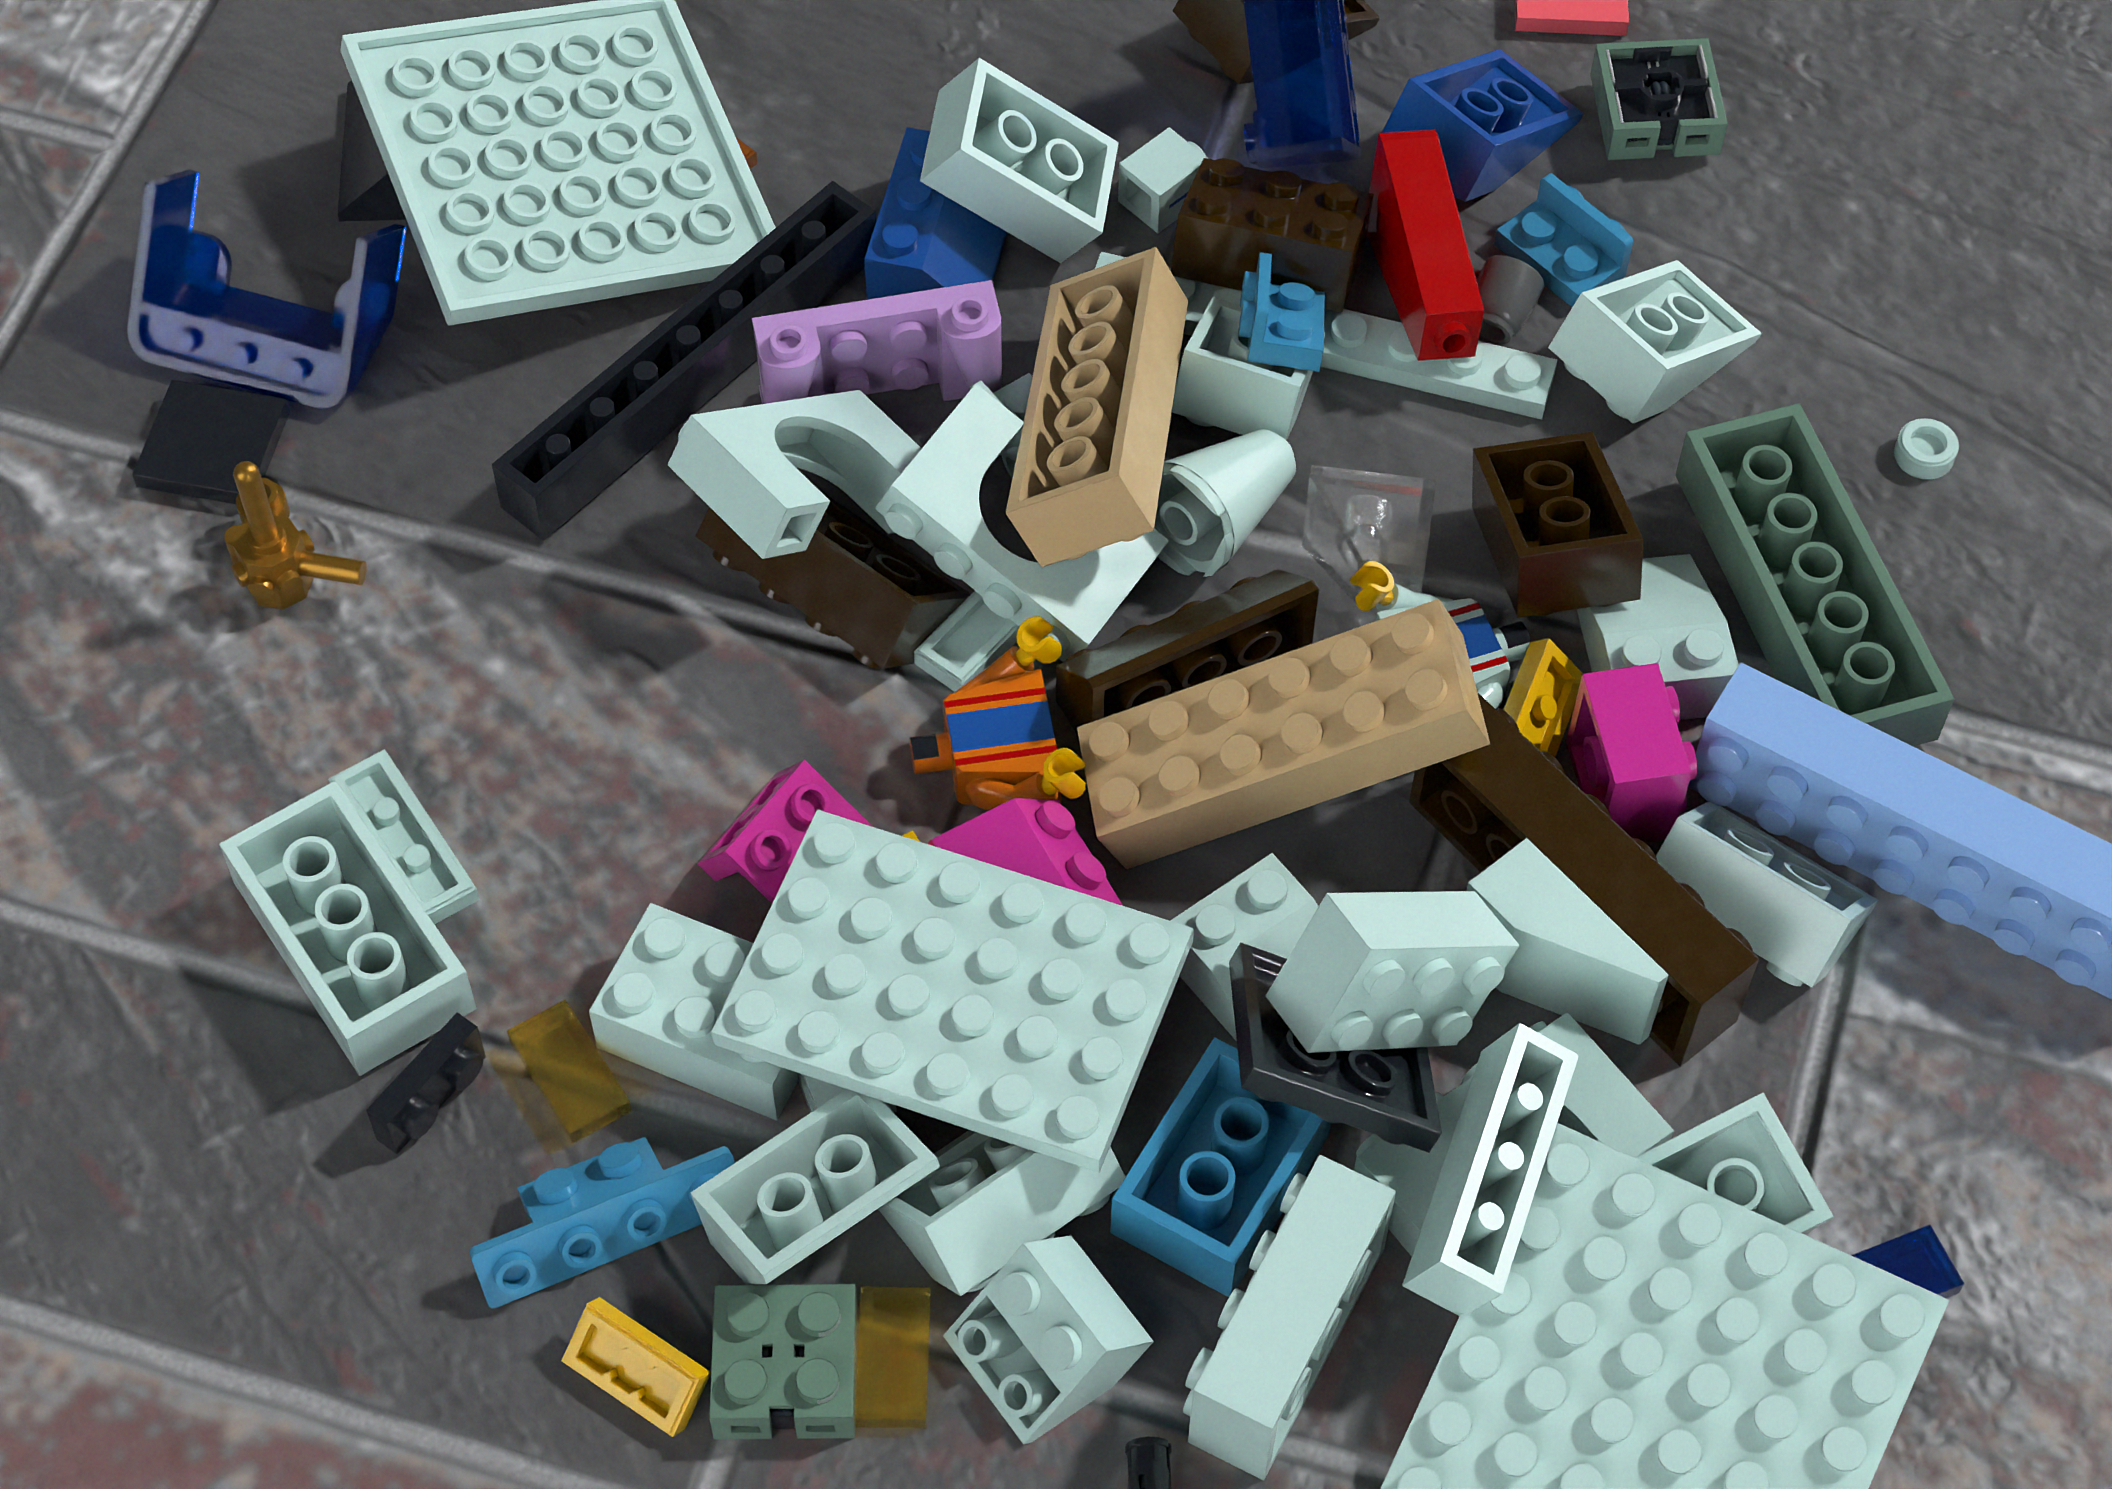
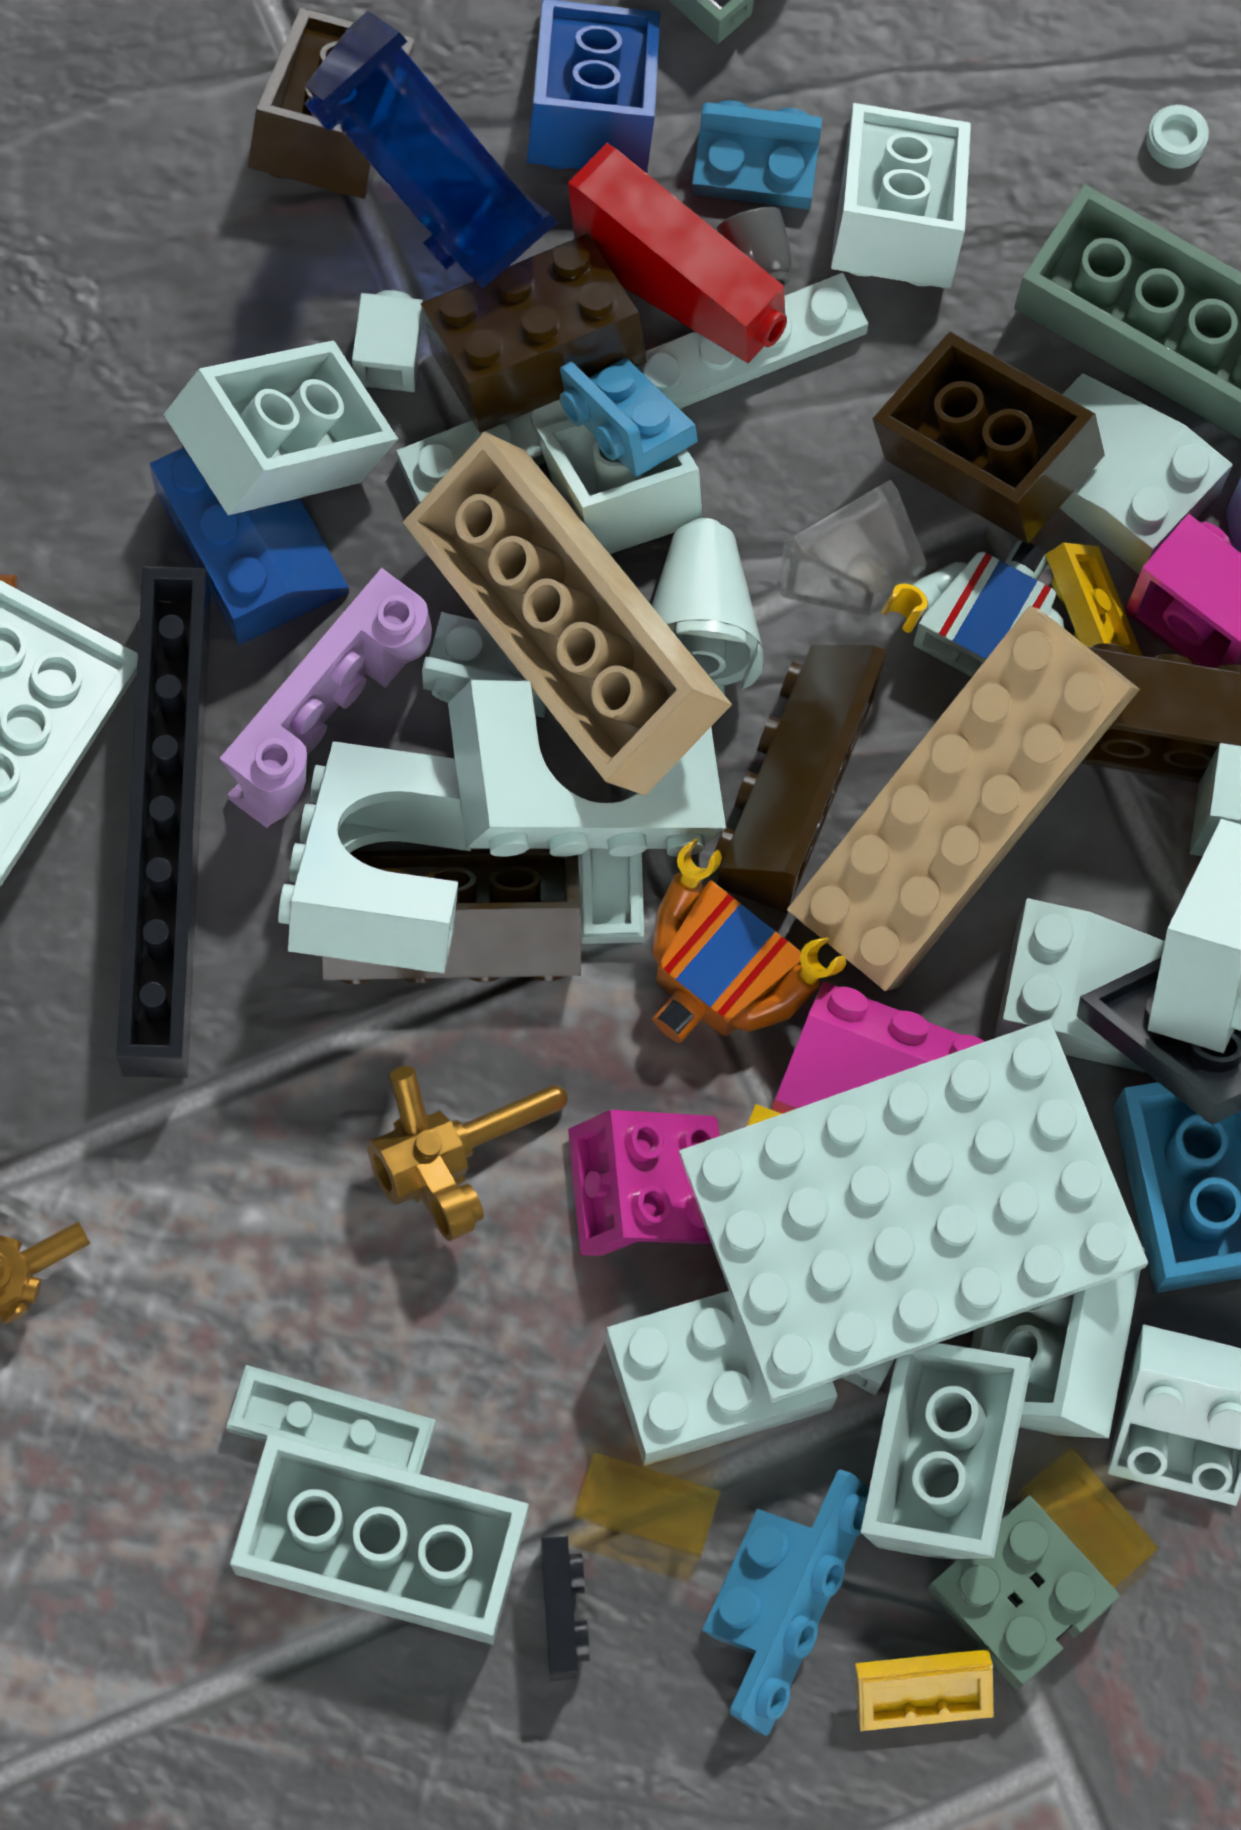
camera: 45 degrees left, 15 degrees up
(651, 703) = (429, 1152): none -> pearl gold piece

